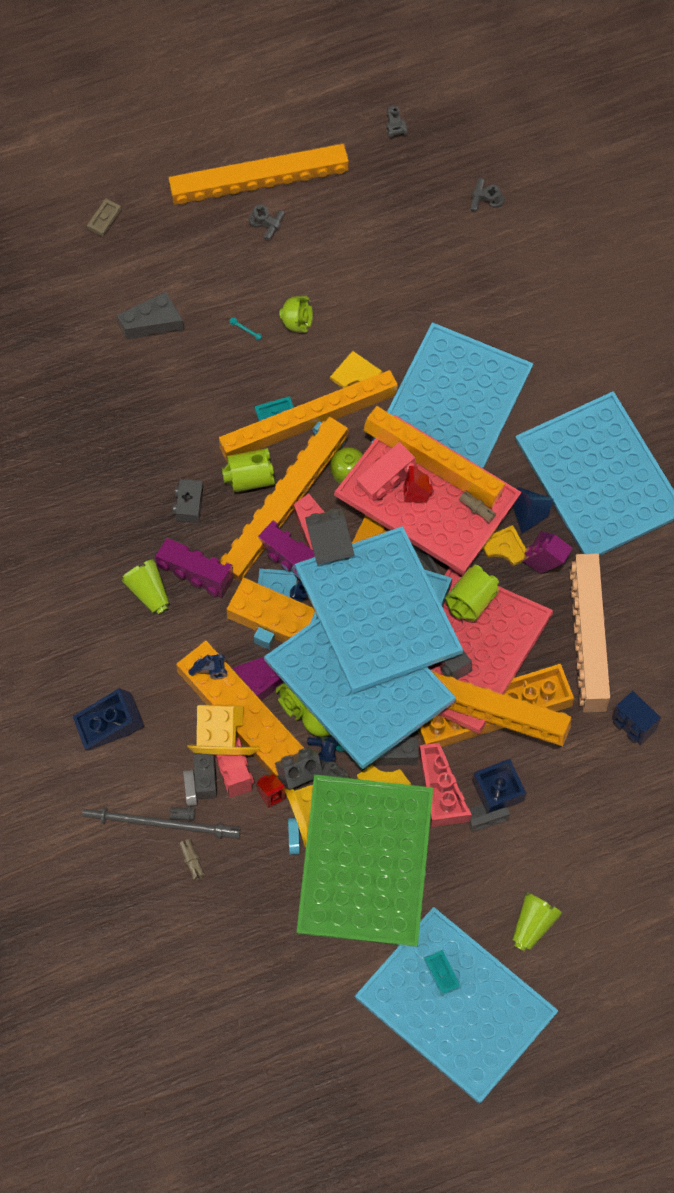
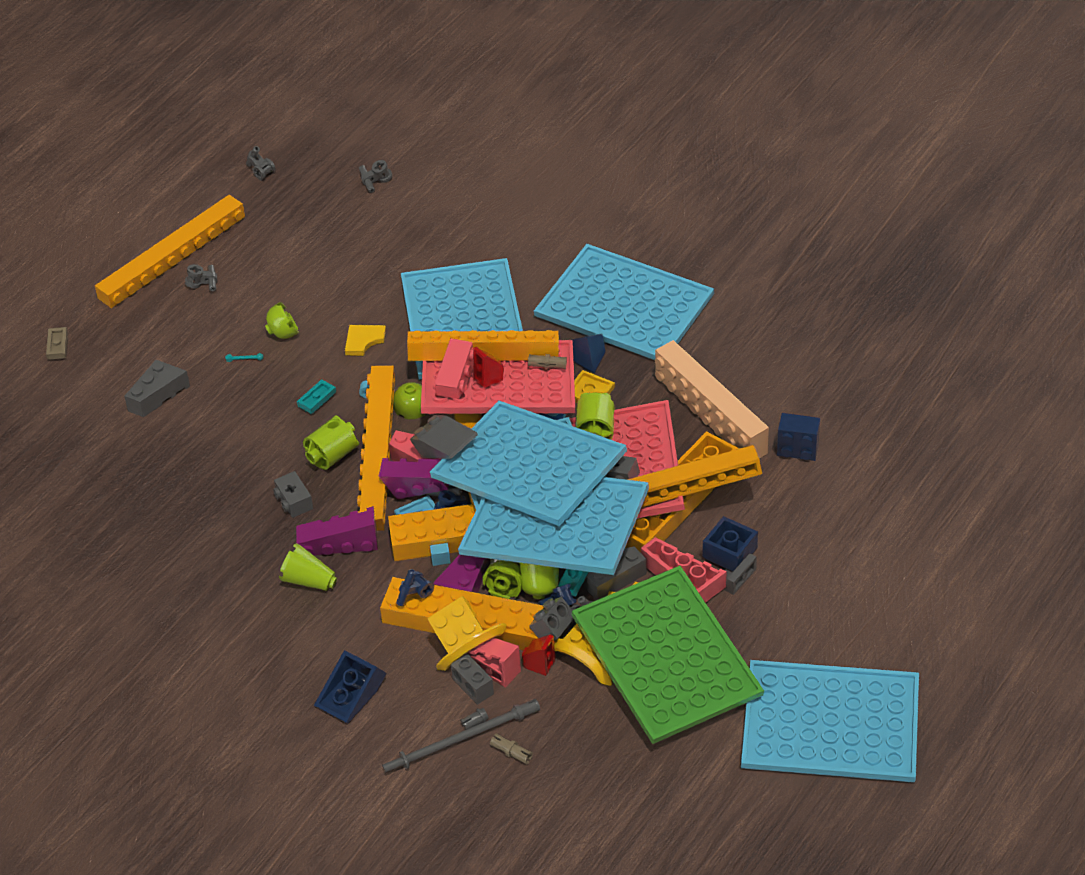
camera: 30 degrees left, 20 degrees down
(190, 787) = (465, 695): light grey beam -> none
(293, 836) = (586, 679): medium azure beam -> none
(308, 414) = (347, 383): light orange brick -> none
(442, 972) = (801, 699): teal plate -> none
(533, 921) = (842, 618): lime cone -> none
(546, 552) = (630, 363): magenta wedge -> none

